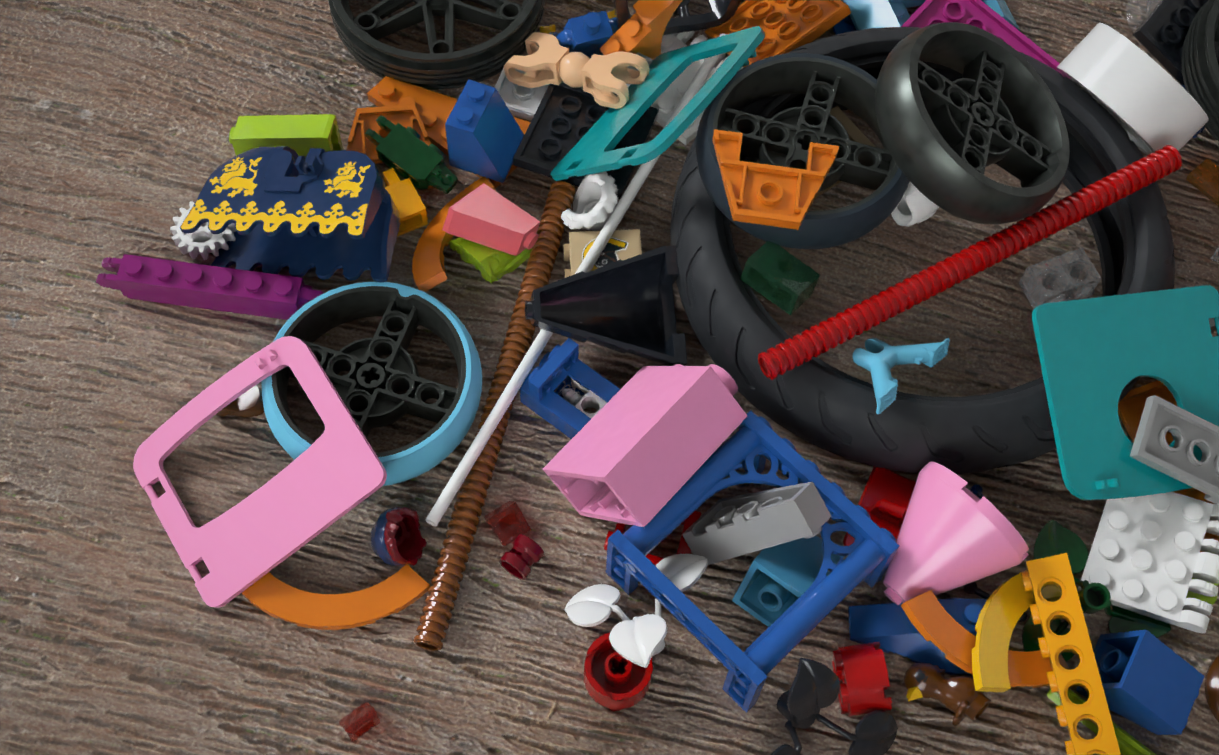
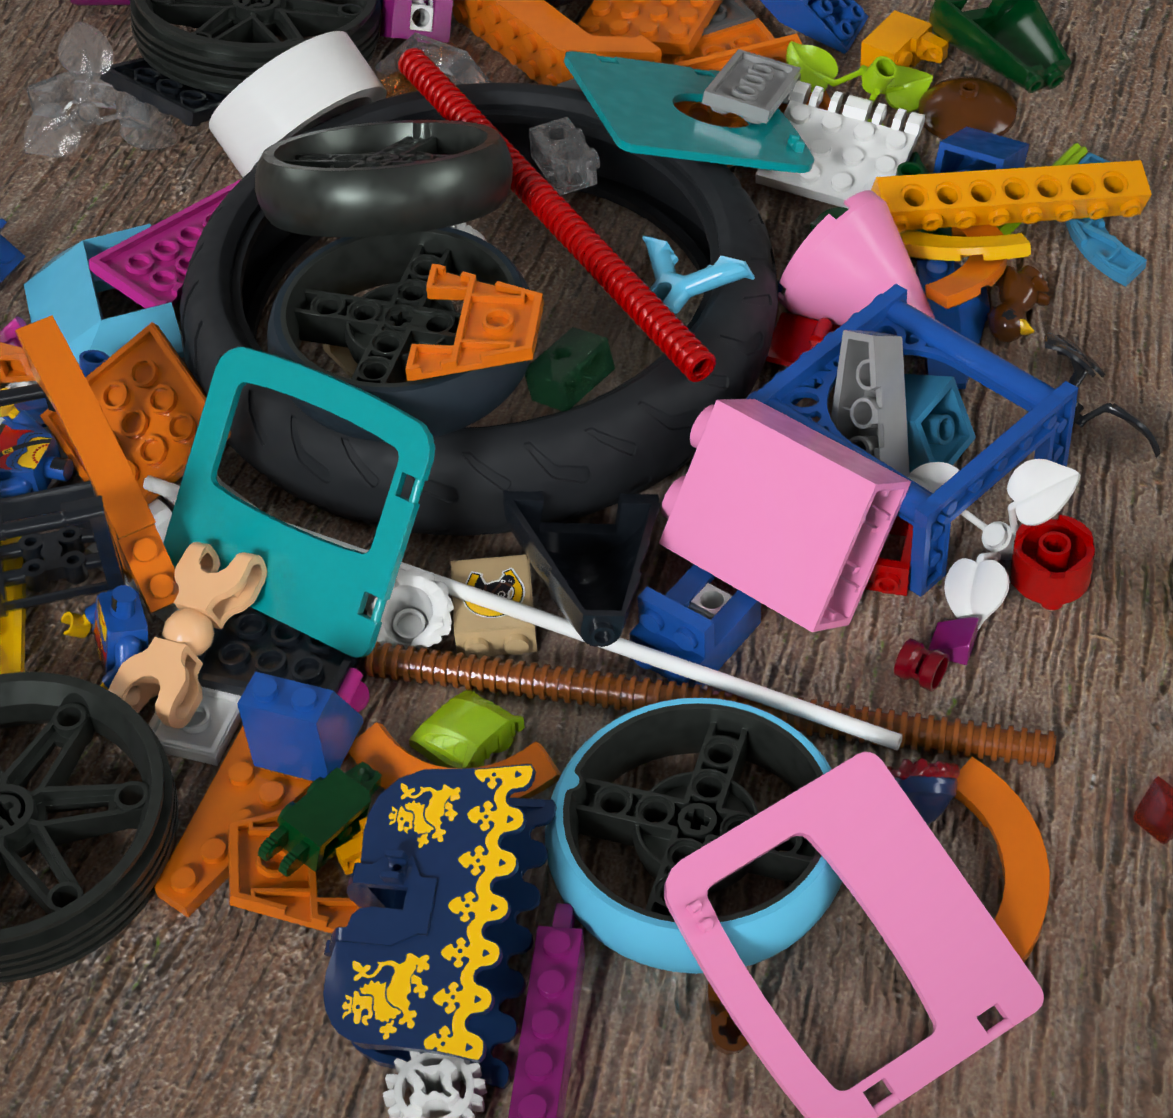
camera: 85 degrees left, 15 degrees down
(294, 131) = (276, 989): lime slope -> none
(492, 221) = (442, 707): coral slope -> none
(507, 522) = (870, 689): clear red slope -> none
(533, 178) = (354, 690): none -> dark pink plate
(550, 588) = (956, 638): none -> magenta slope
(863, 679) = (1023, 345): red brick -> none

